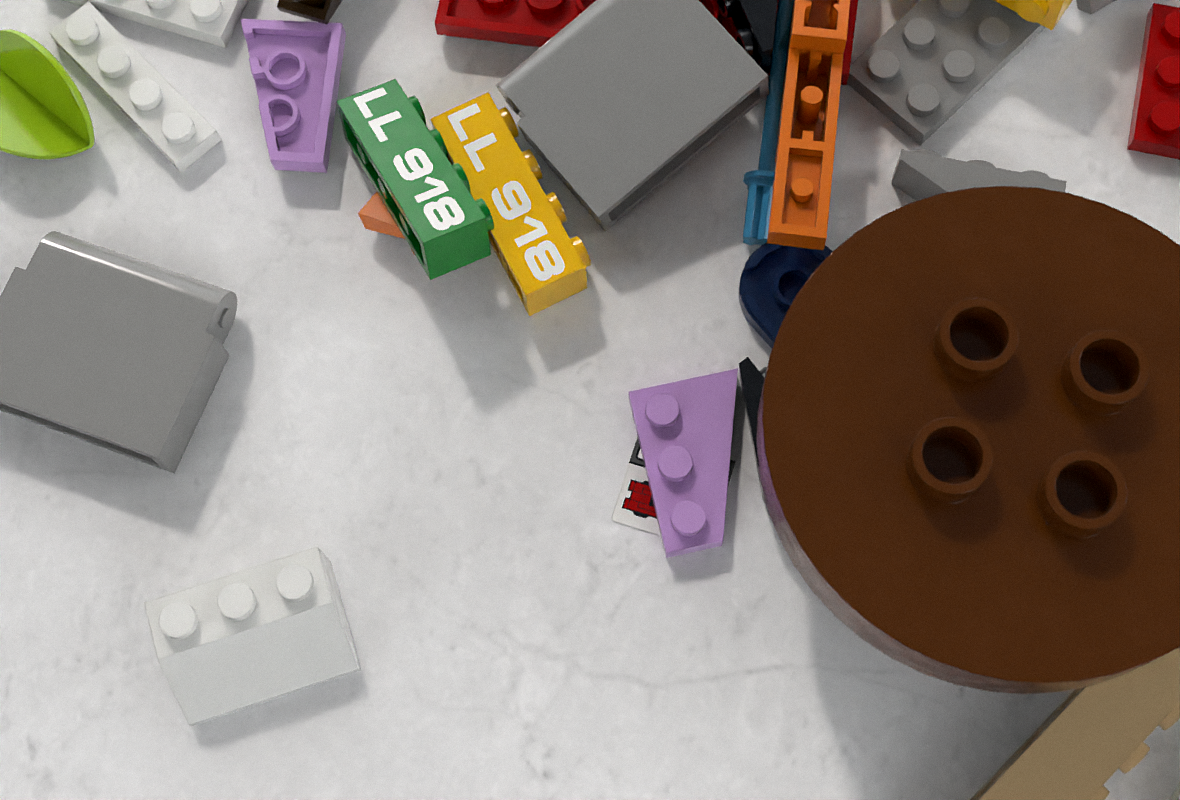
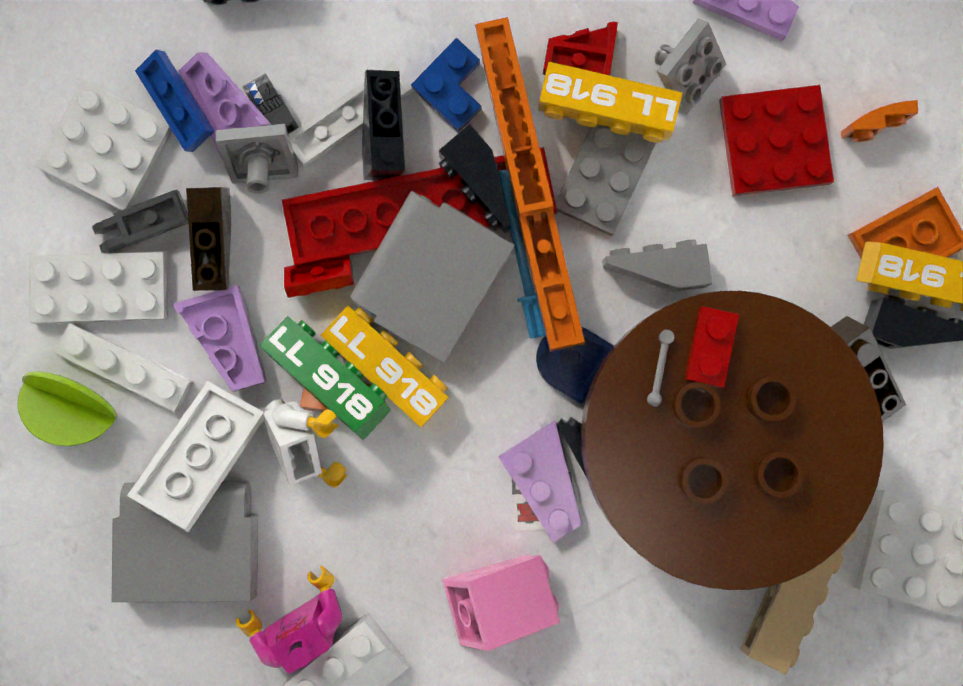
camera: 30 degrees left, 15 degrees up
(176, 224) = (197, 456): none -> white plate
(212, 536) = (301, 633): none -> dark pink torso
(327, 255) = (295, 442): none -> white torso
(445, 50) = (318, 276): none -> red plate
(549, 608) = (501, 602): none -> bright pink slope
(958, 231) = (665, 337): none -> light grey hinge
(1032, 260) = (711, 347): none -> red plate

